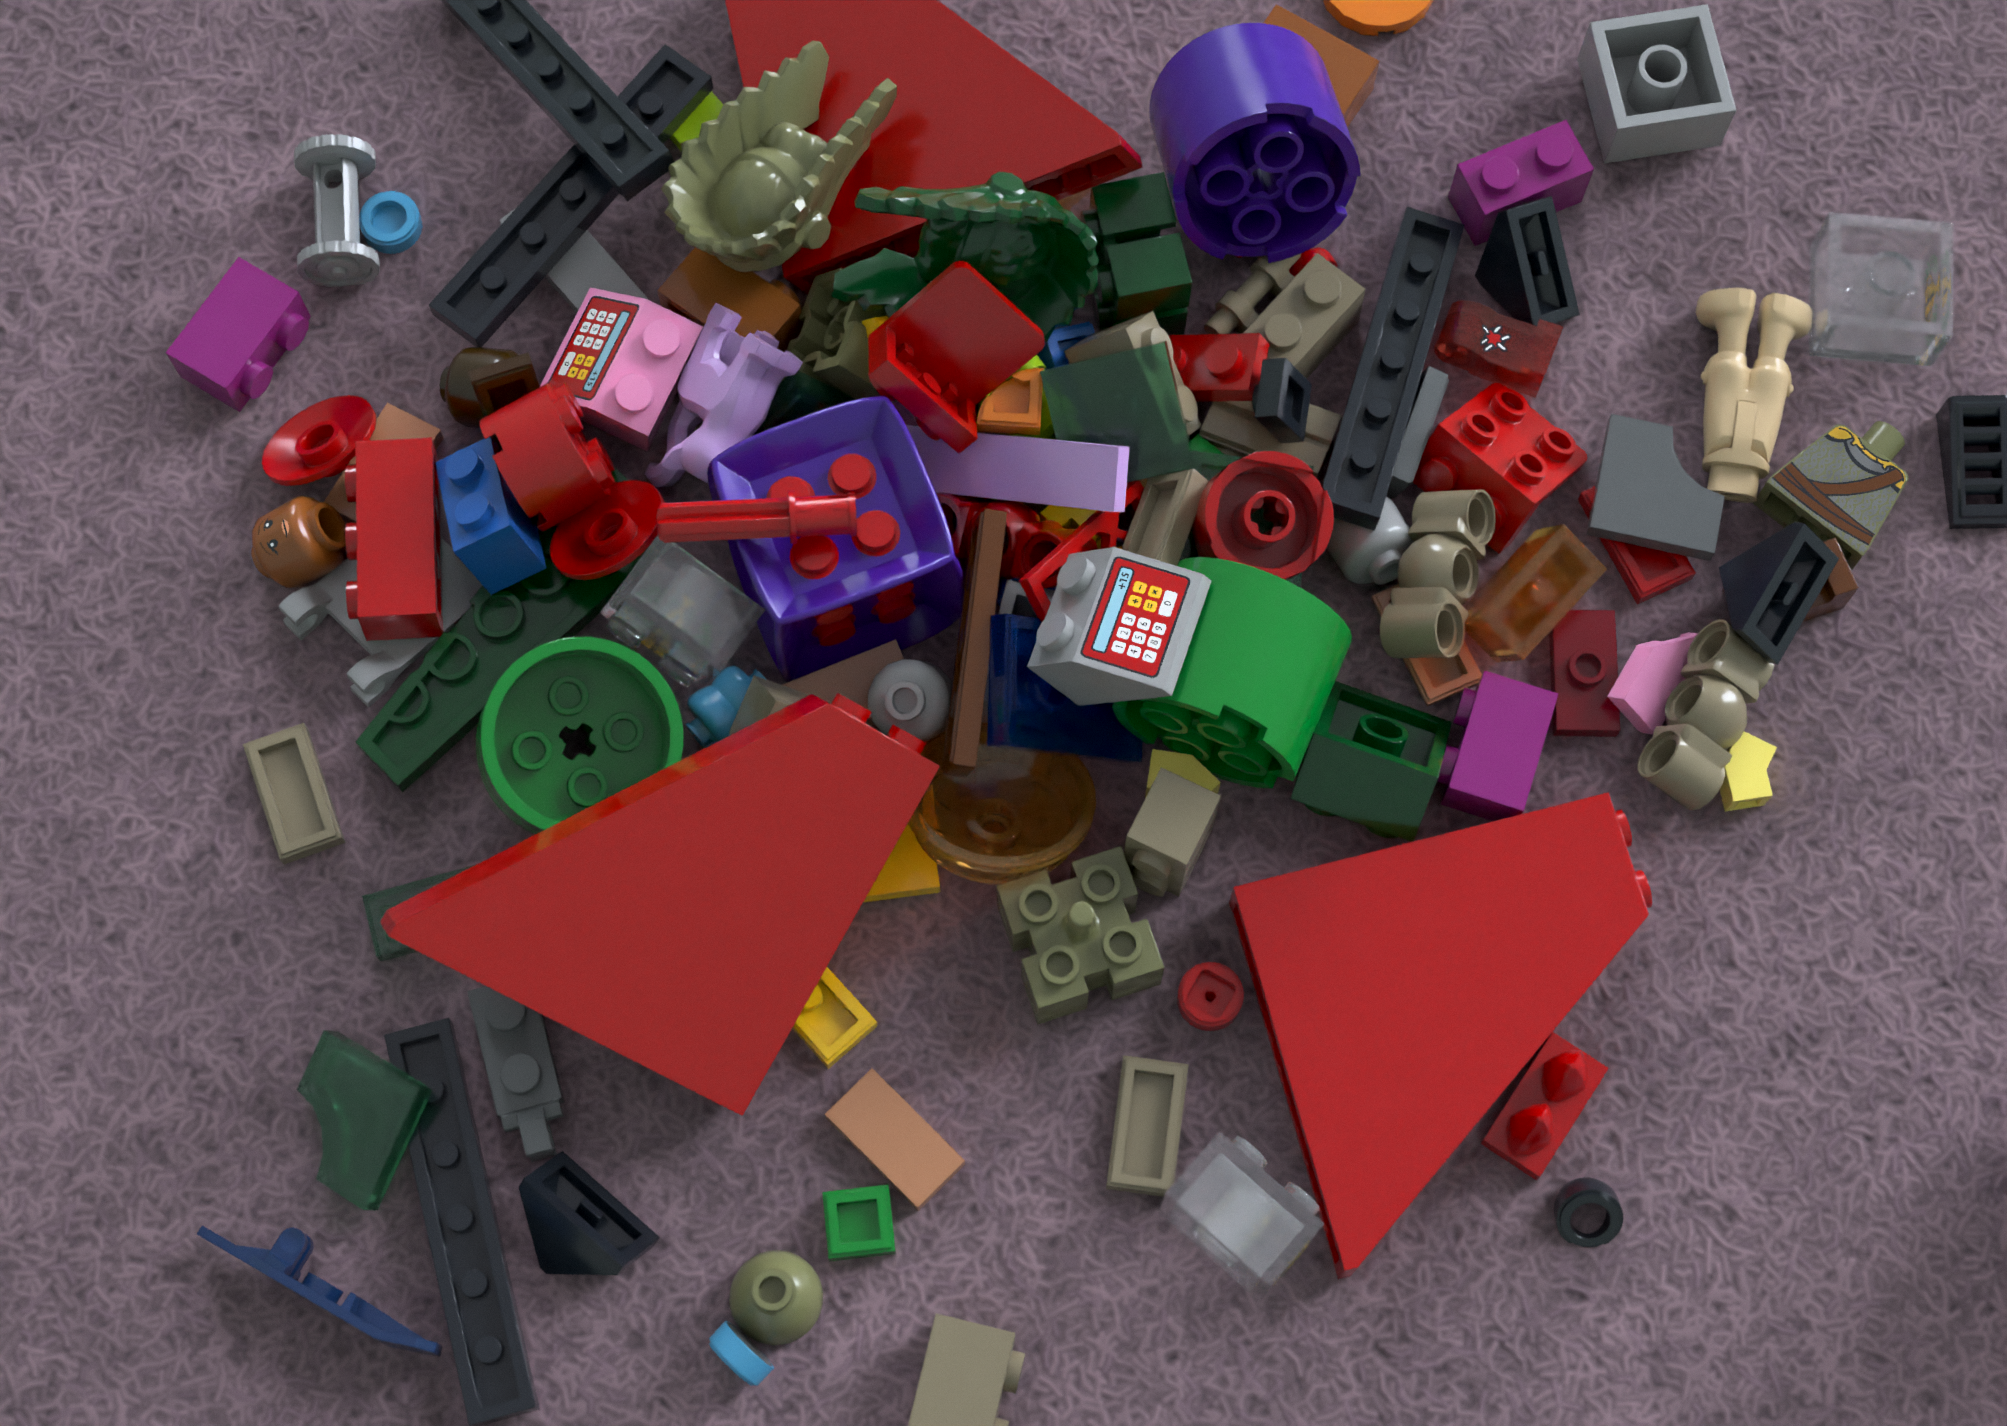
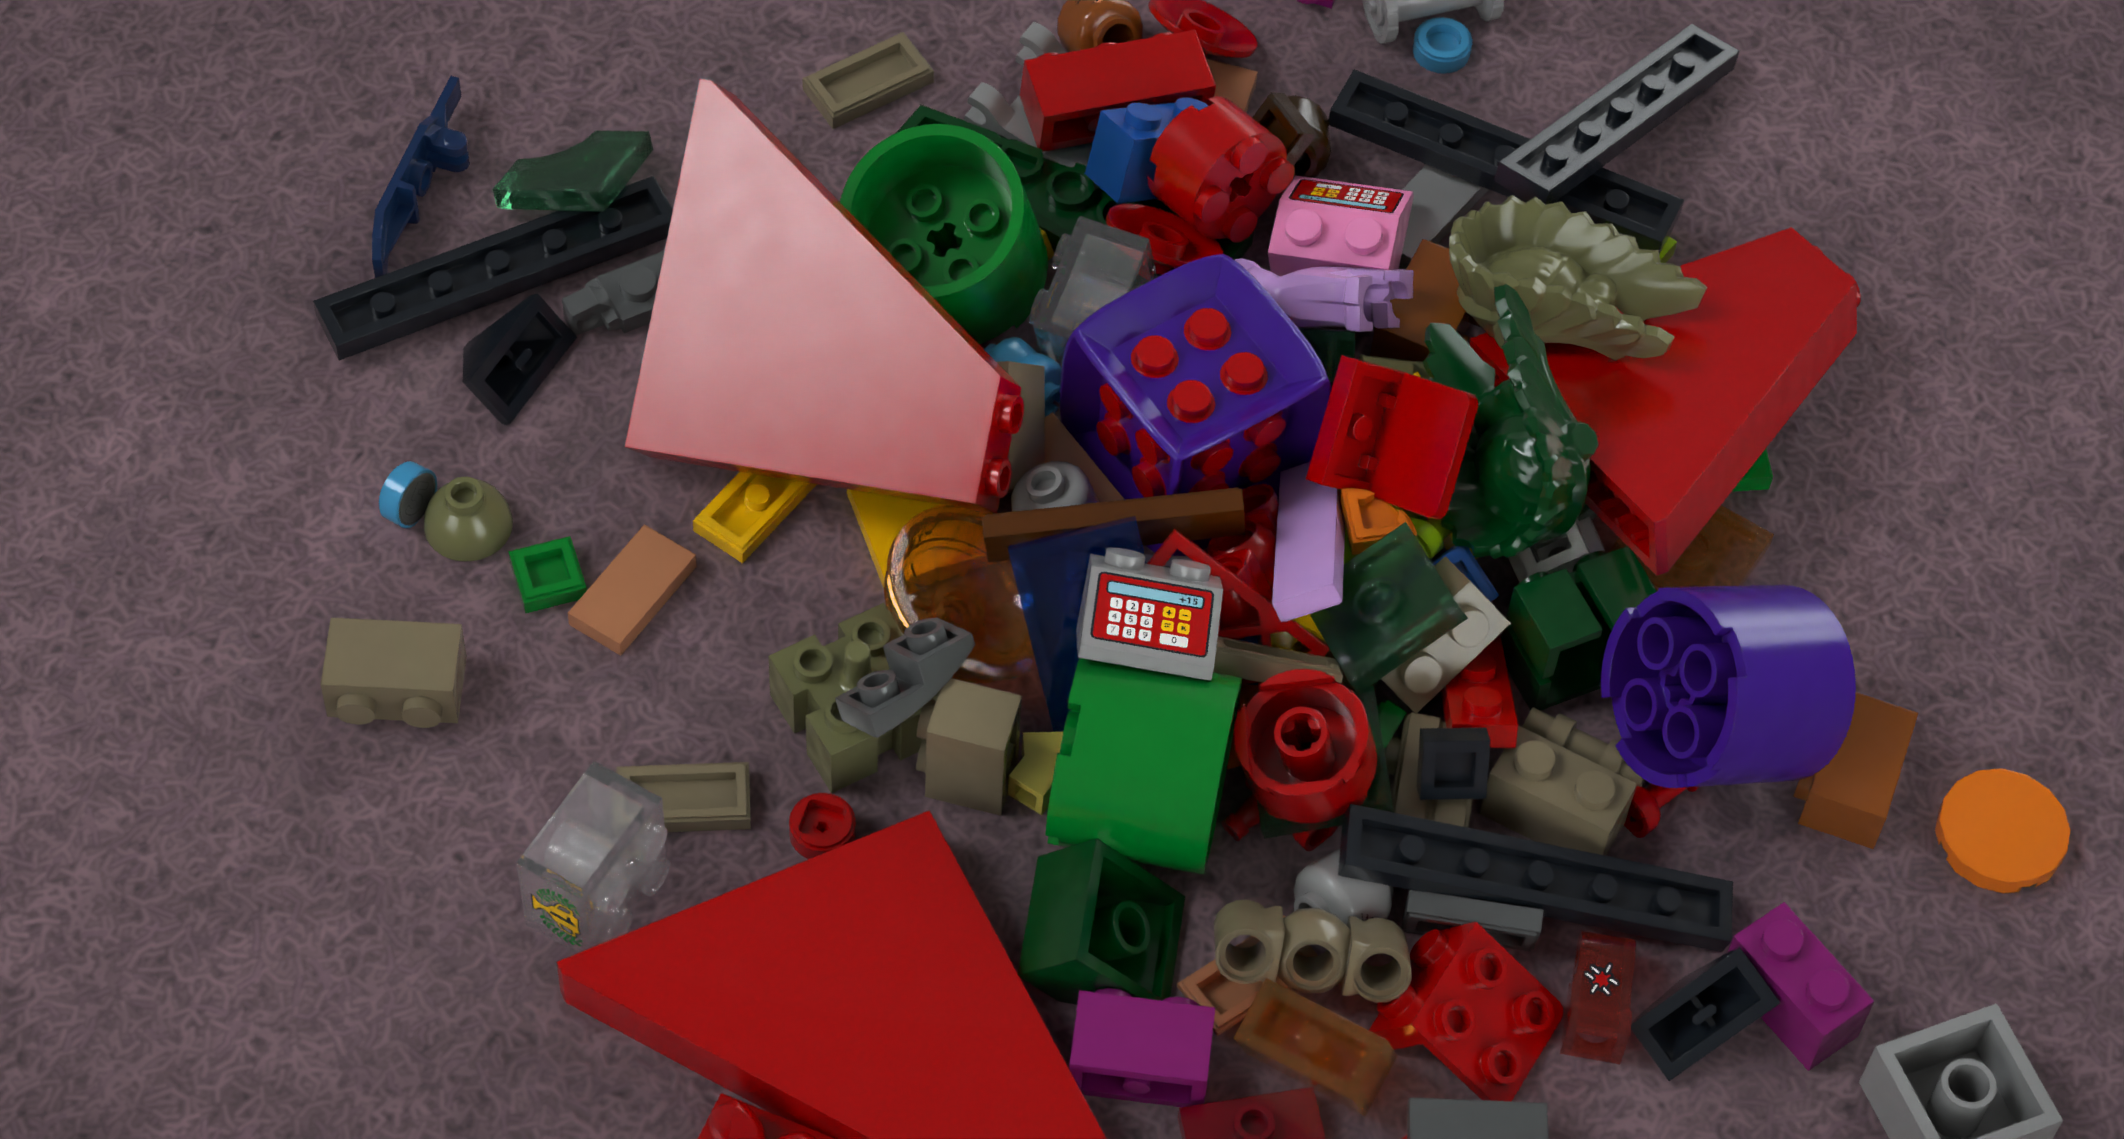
camera: 75 degrees right, 15 degrees down
(757, 518) = (1175, 311): red axle -> none
(1120, 868) = (917, 671): none -> dark grey slope

